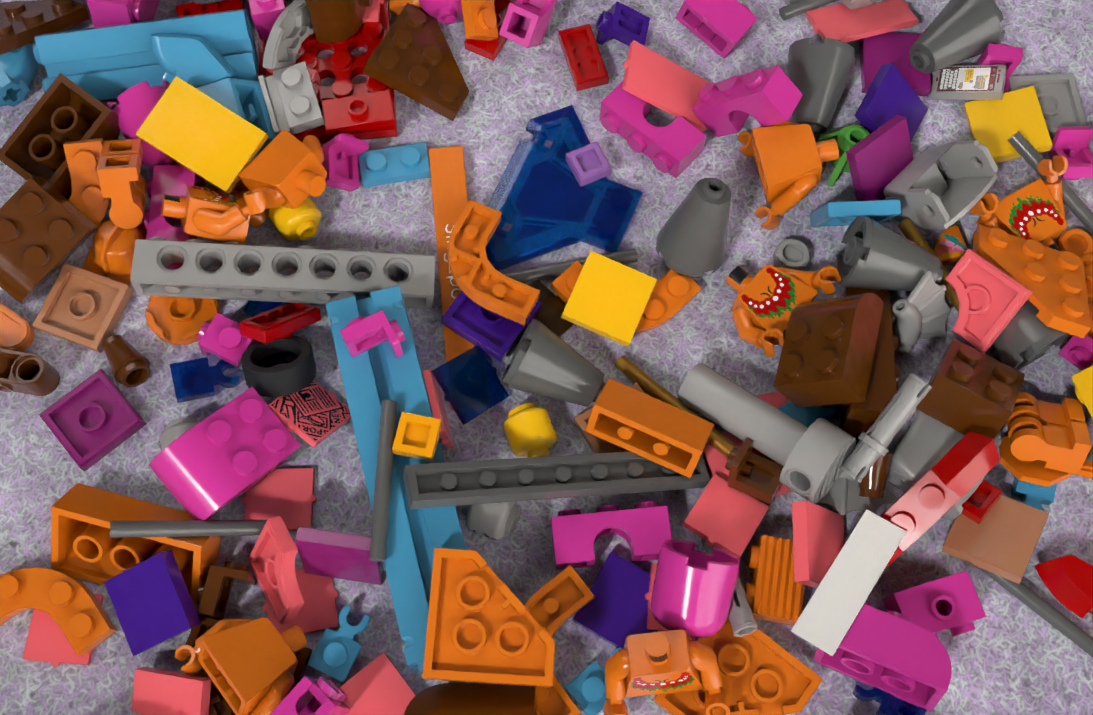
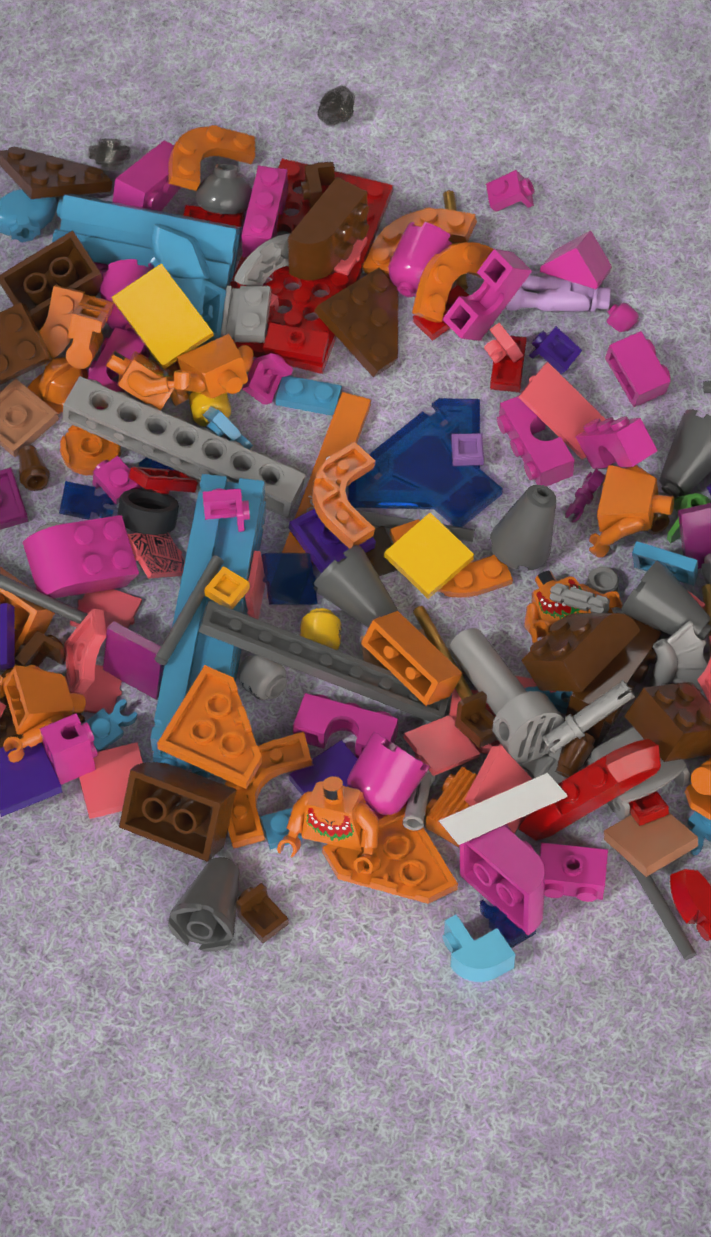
camera: 25 degrees right, 10 degrees down
(319, 235) = (222, 426): none -> dark azure plate
(575, 38) = (502, 345): none -> coral tile
(727, 156) = (584, 495): none -> magenta piece
(797, 289) = (579, 599): none -> light grey axle

